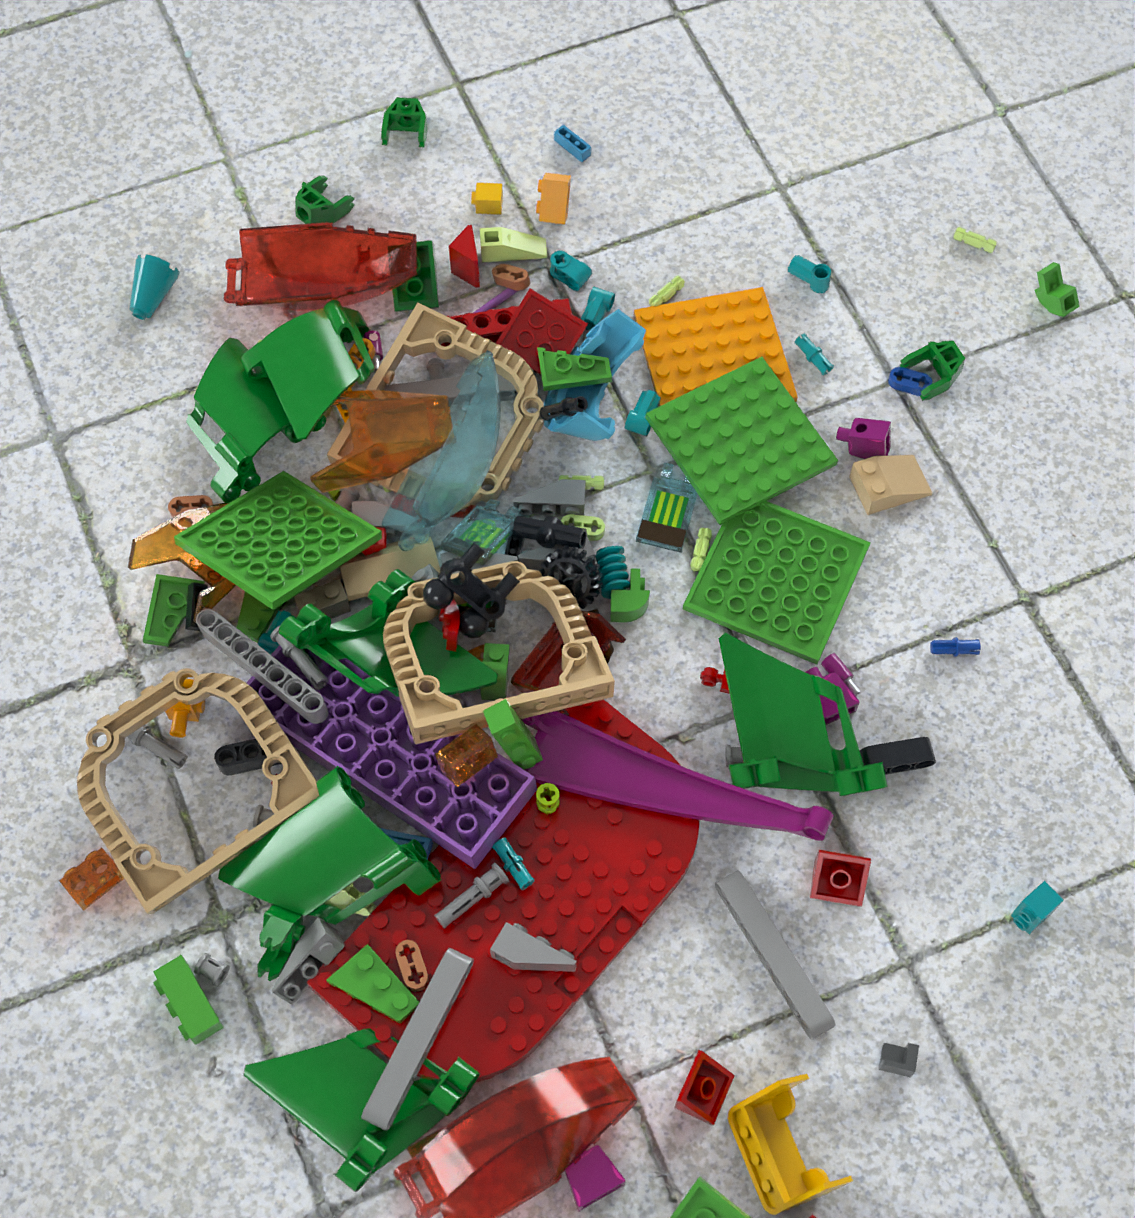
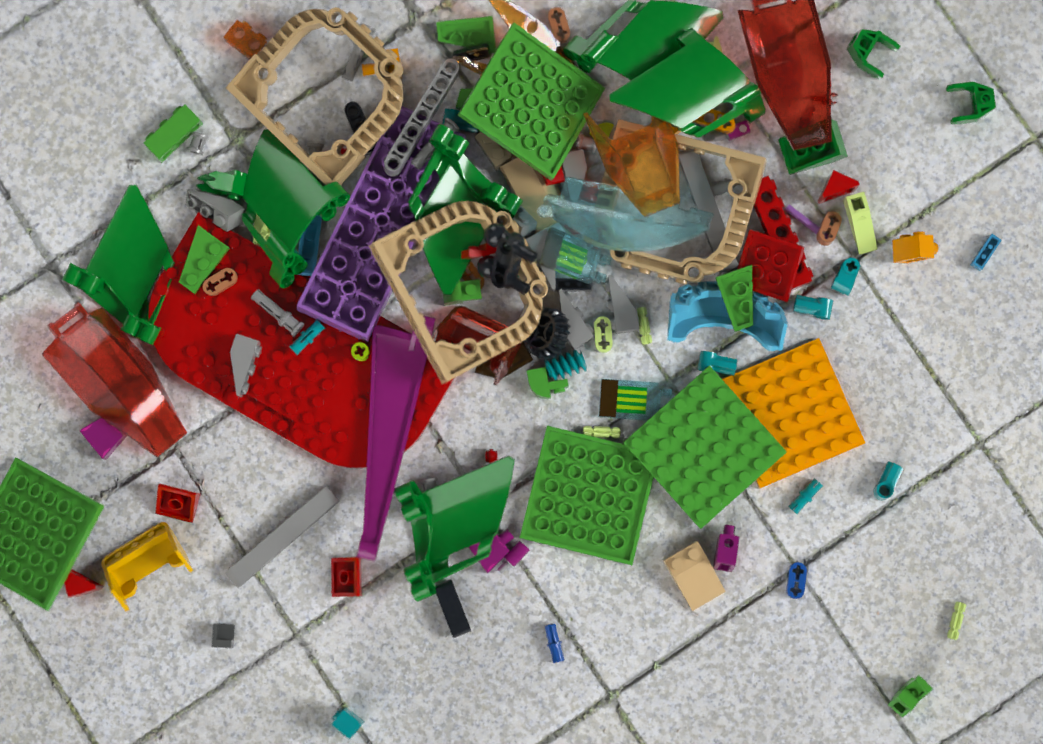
camera: 80 degrees right, 20 degrees up
(417, 1039) = (169, 298): light grey beam -> none
(466, 755) = (369, 285): clear orange brick -> none
(488, 198) = (907, 191): yellow brick -> none
(512, 735) = (391, 316): bright green brick -> none
(549, 532) = (582, 309): black piece -> none
(567, 407) = (683, 299): black pin -> none
(667, 291) = (843, 362): yellowish green axle -> none
(945, 359) = (821, 600): green piece -> none

